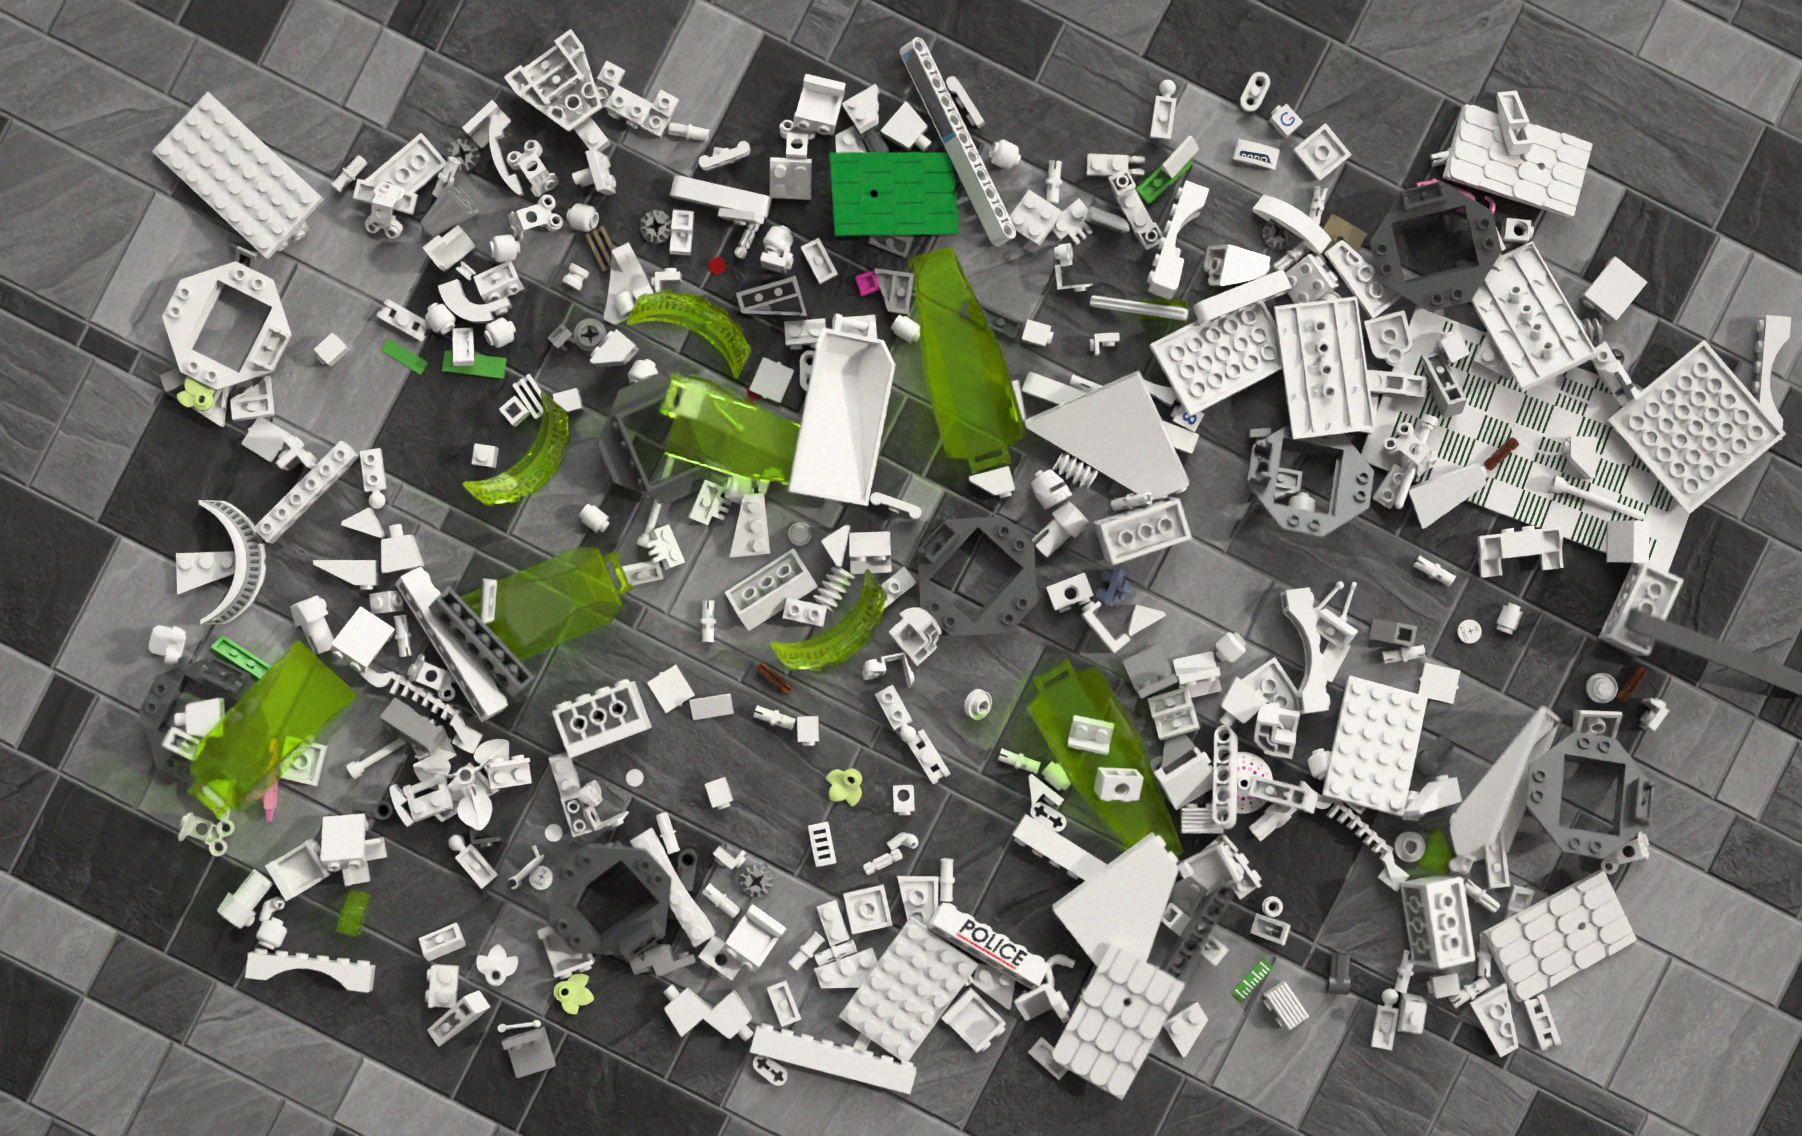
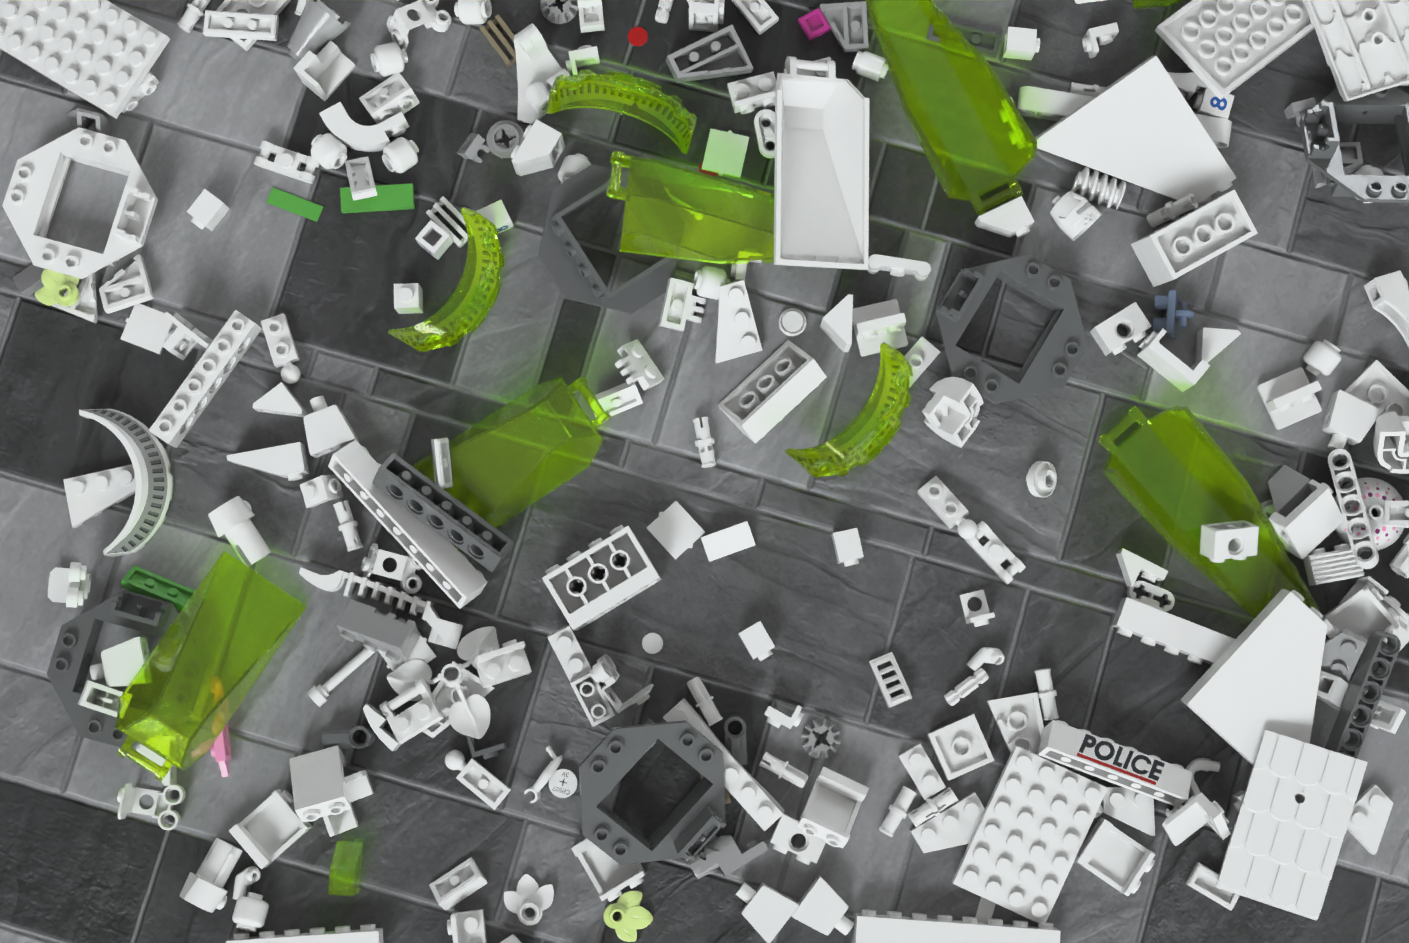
camera: 10 degrees left, 5 degrees down
(308, 765) = (261, 701): white plate -> none
(361, 640) = (299, 538): white panel -> none
(385, 199) = (241, 22): white piece -> none
(465, 270) = (349, 93): white bush -> none
(553, 832) = (568, 727): white sticker -> none
(575, 276) = (477, 76): white wheel -> none
(594, 518) = (549, 347): white brick -> none
(646, 537) = (609, 363): white piece -> none
(774, 678) = (795, 494): copper axle -> none
(774, 717) = (805, 540): white pin -> none
(784, 1003) = (883, 880): white plate -> none
(804, 612) = (817, 408): white bracket -> none
(833, 587) = (843, 375): white piece -> none
(844, 789) = (902, 609): yellowish green plate -> none
(873, 669) = (913, 458): white piece -> none
(1019, 761) = (1102, 537): pin -> none
(1056, 776) = (1152, 546): brick -> none
(1067, 522) = (1101, 249): white piece -> none
(1090, 735) = (1182, 489): white bracket -> none
(1149, 671) = (1233, 404): light grey bracket -> none
(1173, 713) = (1272, 447): white slope -> none

